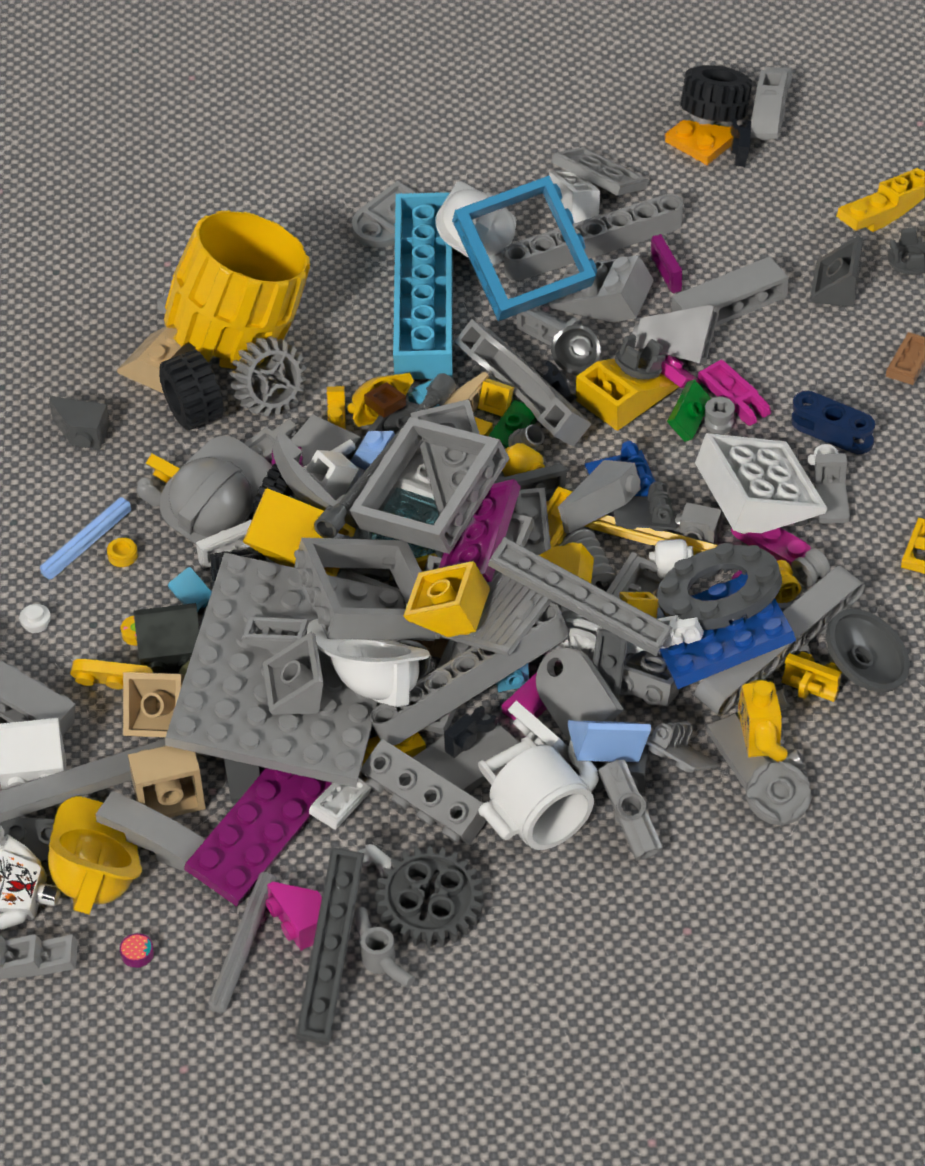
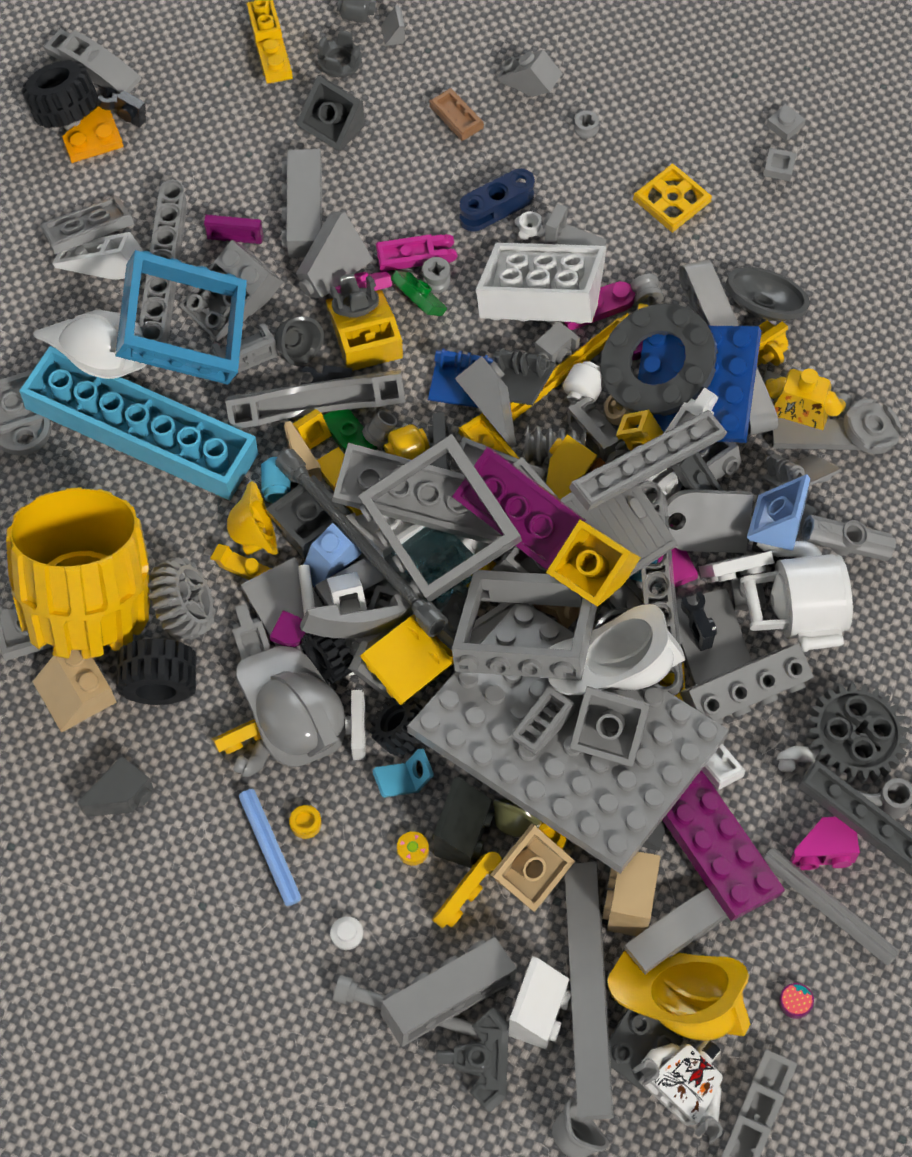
camera: 65 degrees left, 15 degrees up
(385, 399) = (277, 514): reddish brown plate -> none

